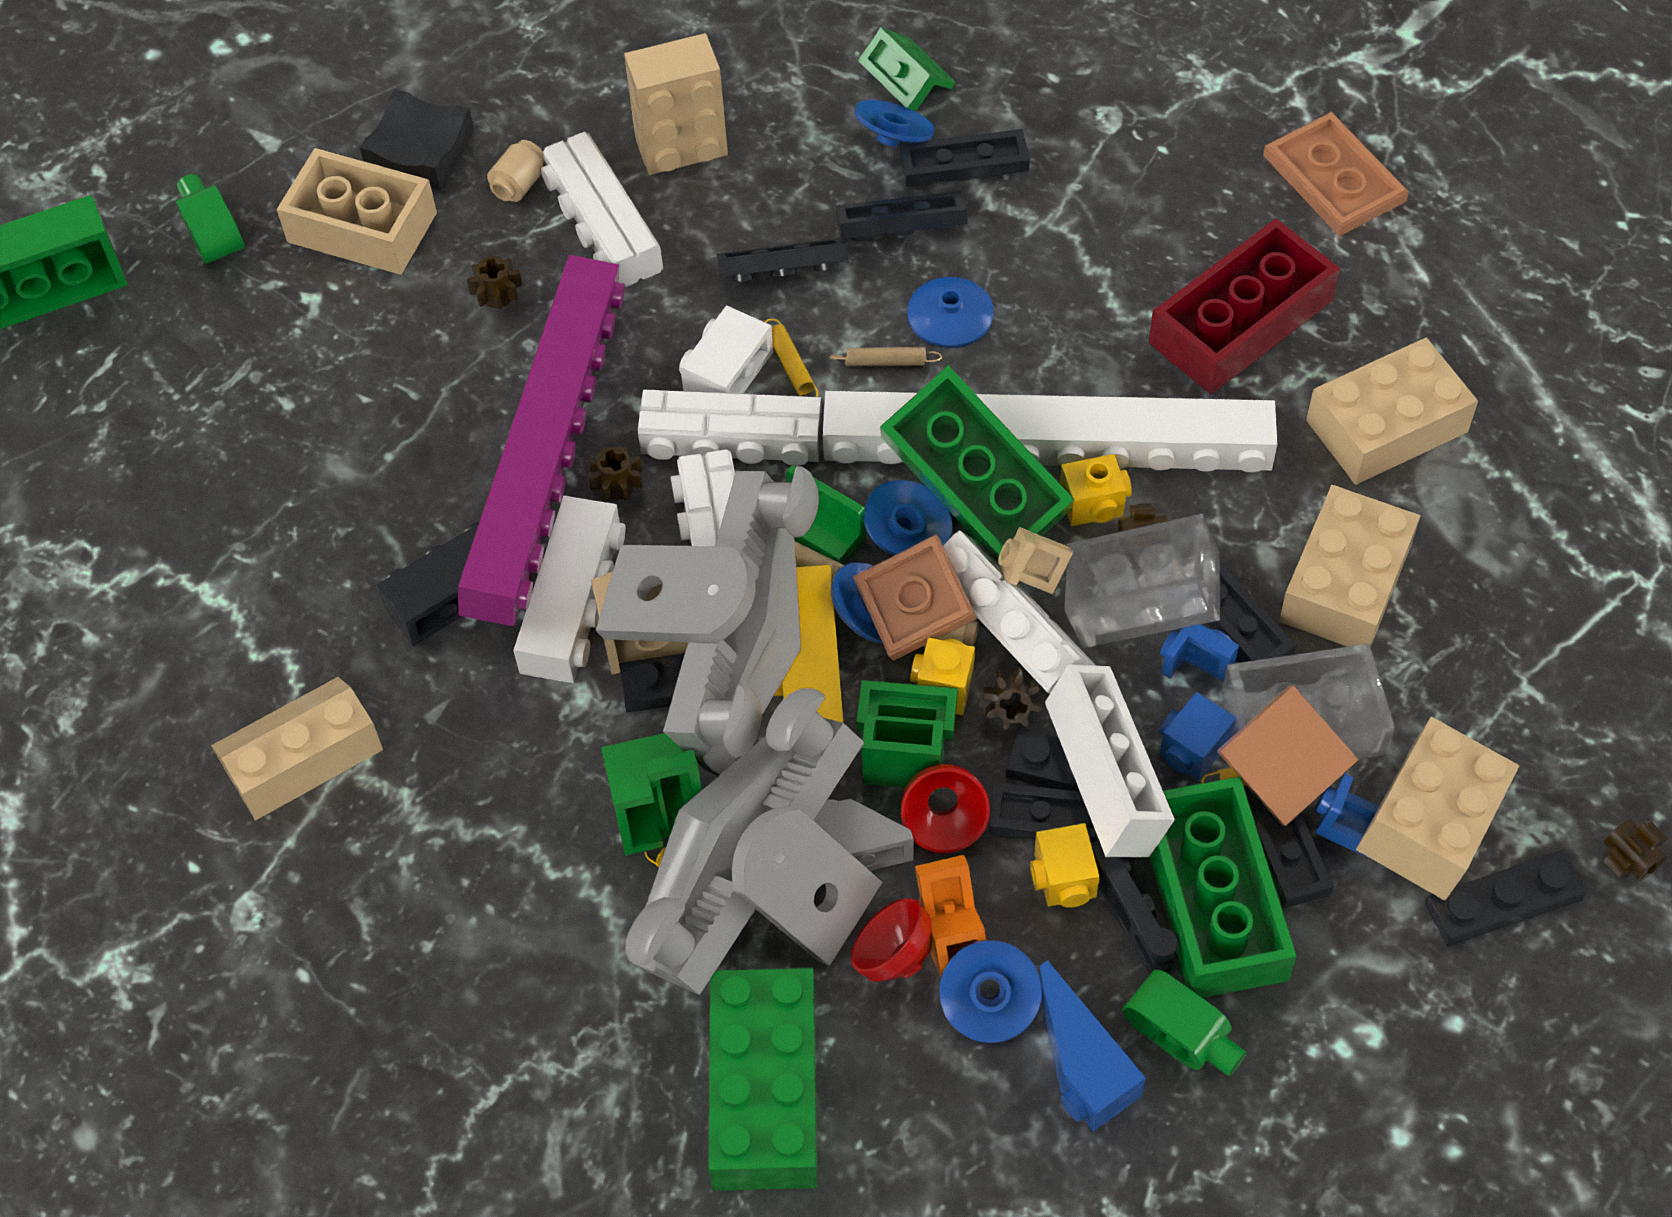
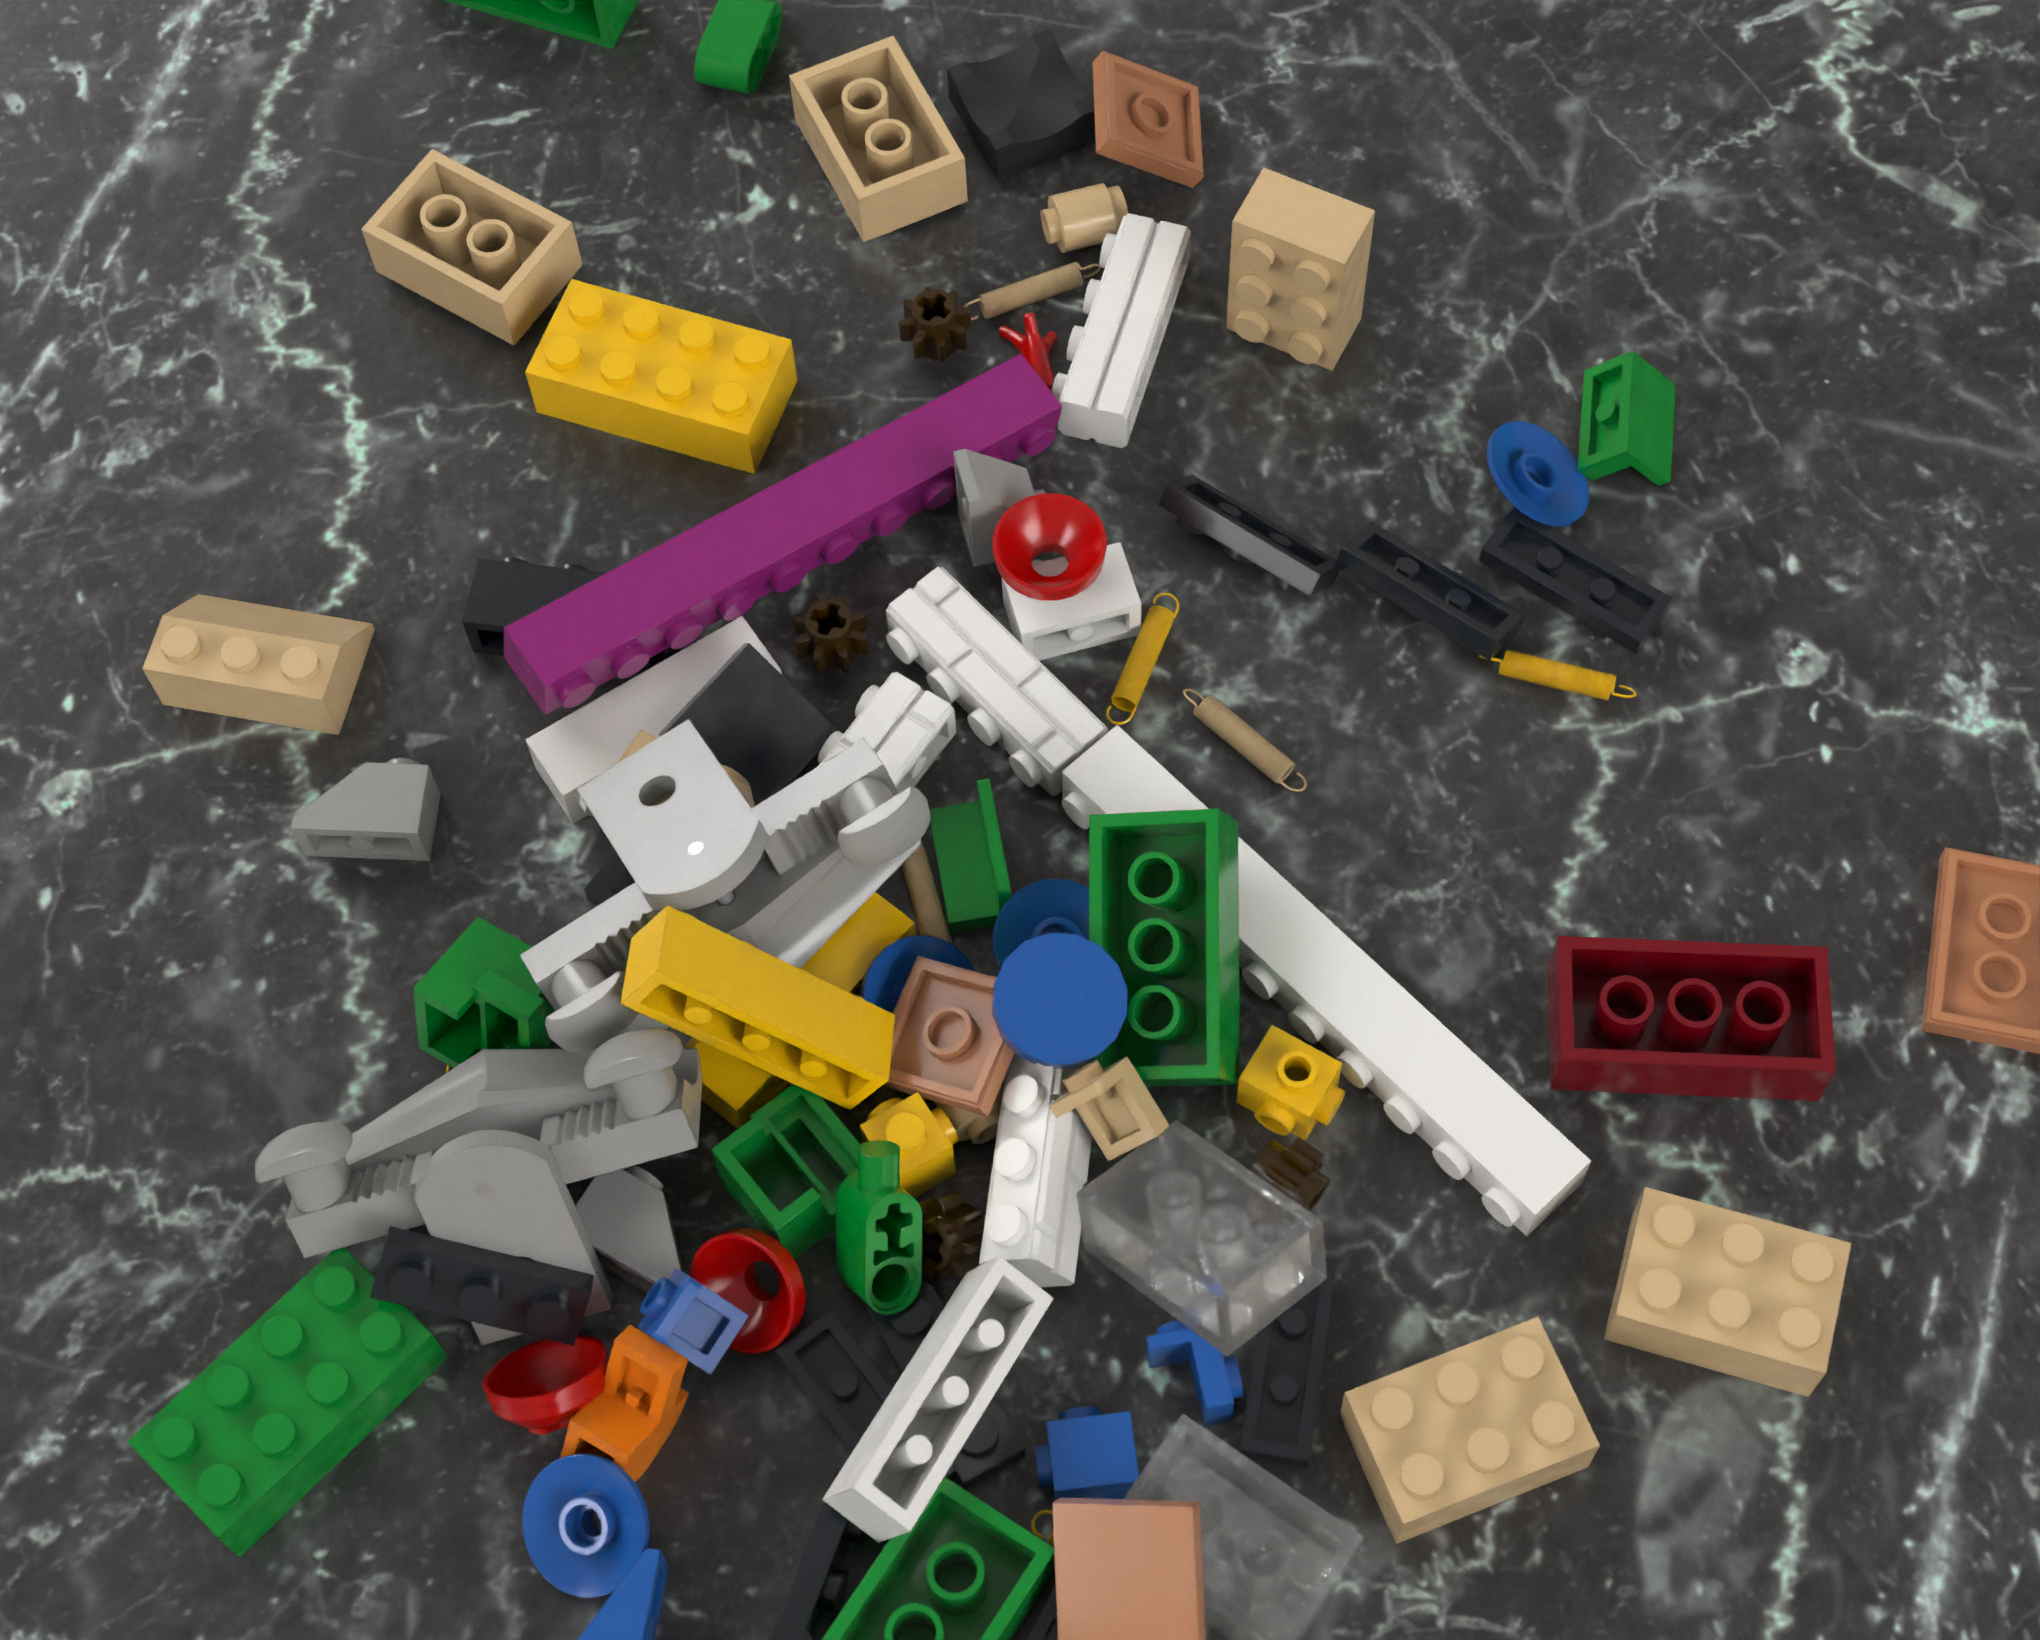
camera: 45 degrees right, 5 degrees up
(176, 436) = (473, 246): none -> tan brick
(369, 419) = (662, 376): none -> yellow brick
(463, 763) = (373, 814): none -> light grey slope
(498, 98) = (1147, 119): none -> nougat tile
(525, 228) = (1032, 290): none -> tan piece
(557, 257) = (1033, 347): none -> red bar
(623, 523) = (756, 722): none -> black tile
(637, 344) = (984, 492): none -> light grey slope
(697, 315) = (1049, 525): none -> red piece
(812, 921) = (482, 1286): none -> black plate
(818, 651) = (758, 1008): none -> yellow brick
(934, 838) = (690, 1319): none -> blue bracket
(948, 324) = (1370, 769): blue dish -> none
(960, 526) = (1059, 1000): none -> blue tile
(985, 716) = (879, 1230): none -> green piece
(1004, 208) = (1559, 675): none -> yellow piece
(1065, 866) = (793, 1468): yellow brick -> none

